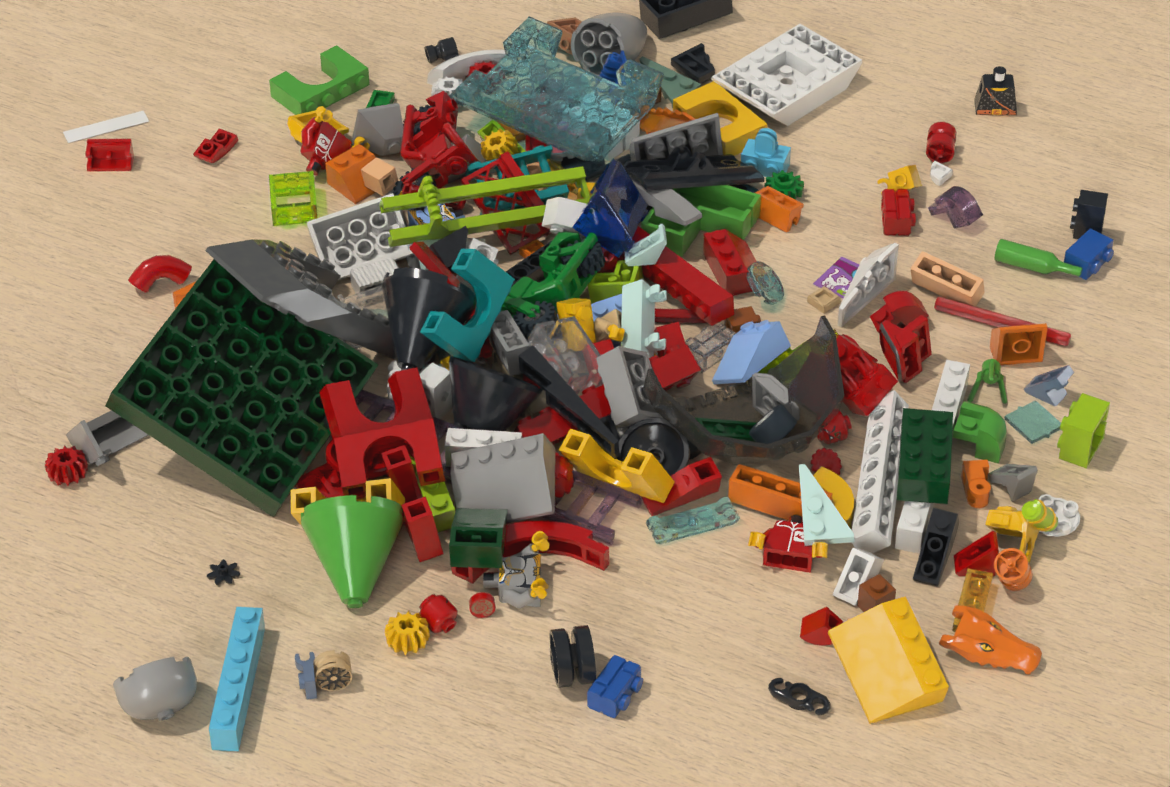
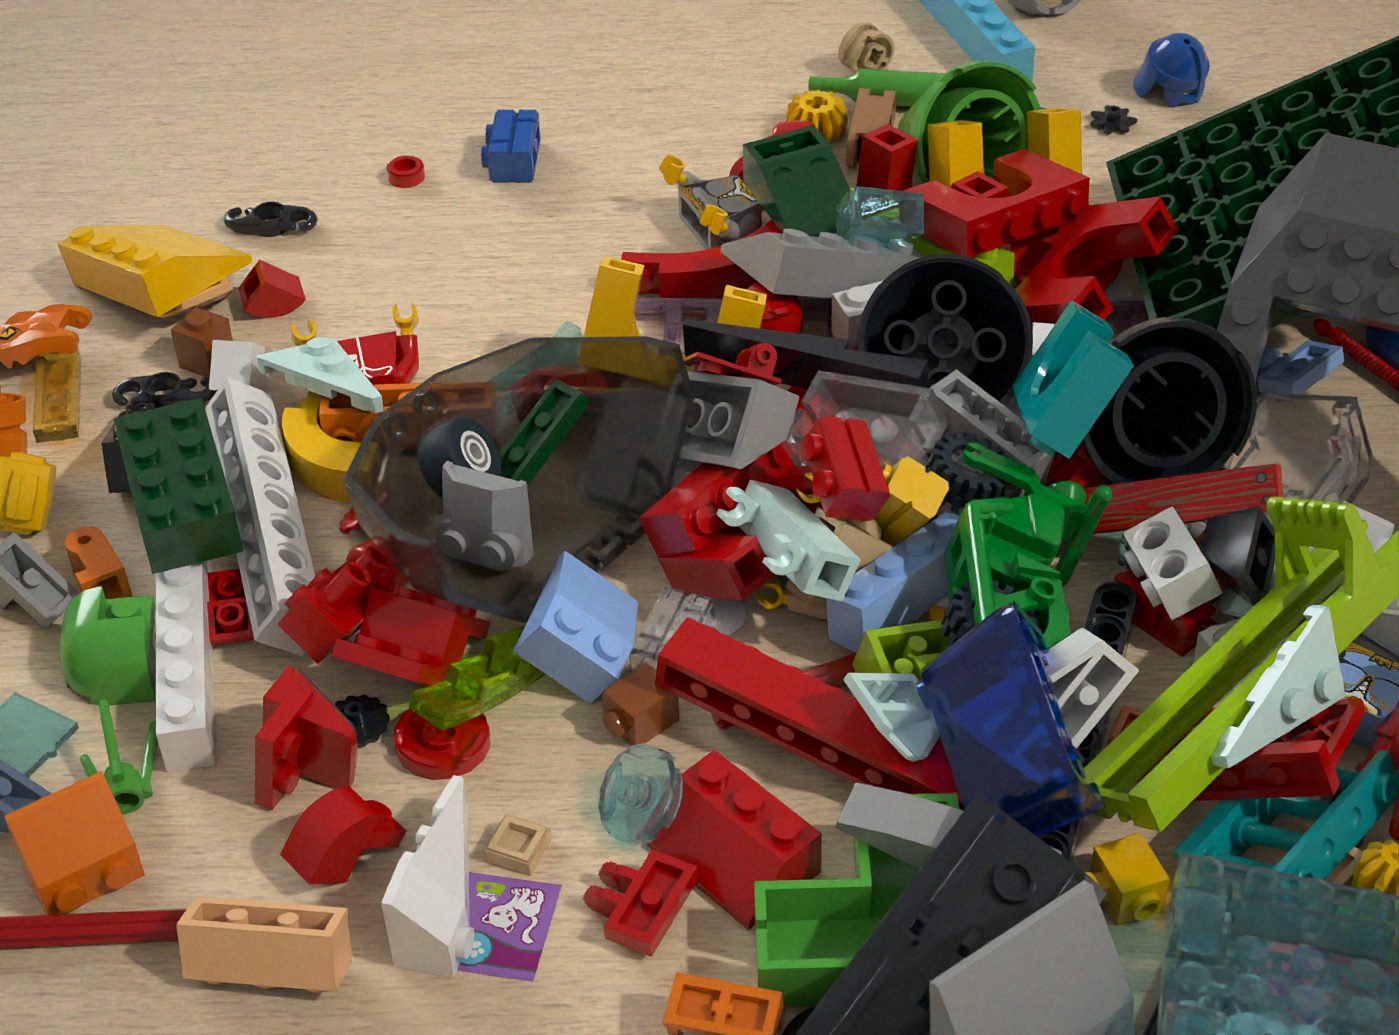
camera: 155 degrees right, 0 degrees up
(160, 576) = (1176, 64): none -> blue helmet
(307, 678) = (902, 52): sand blue plate -> none
(342, 639) = (907, 84): none -> bright green piece
(374, 612) = (869, 114): none -> medium nougat piece
(468, 469) = (880, 214): none -> clear light blue slope
(478, 176) = (1291, 691): none -> light aqua wing
(573, 655) = (580, 130): black wheel -> none
(602, 314) = (845, 468): none -> red brick
(615, 395) = (752, 363): none -> red hinge
(692, 706) = (405, 171): none -> red tile
(783, 255) = (649, 899): none -> red hinge
(915, 594) = (149, 385): none -> black piece
(978, 555) = (67, 448): red slope -> none

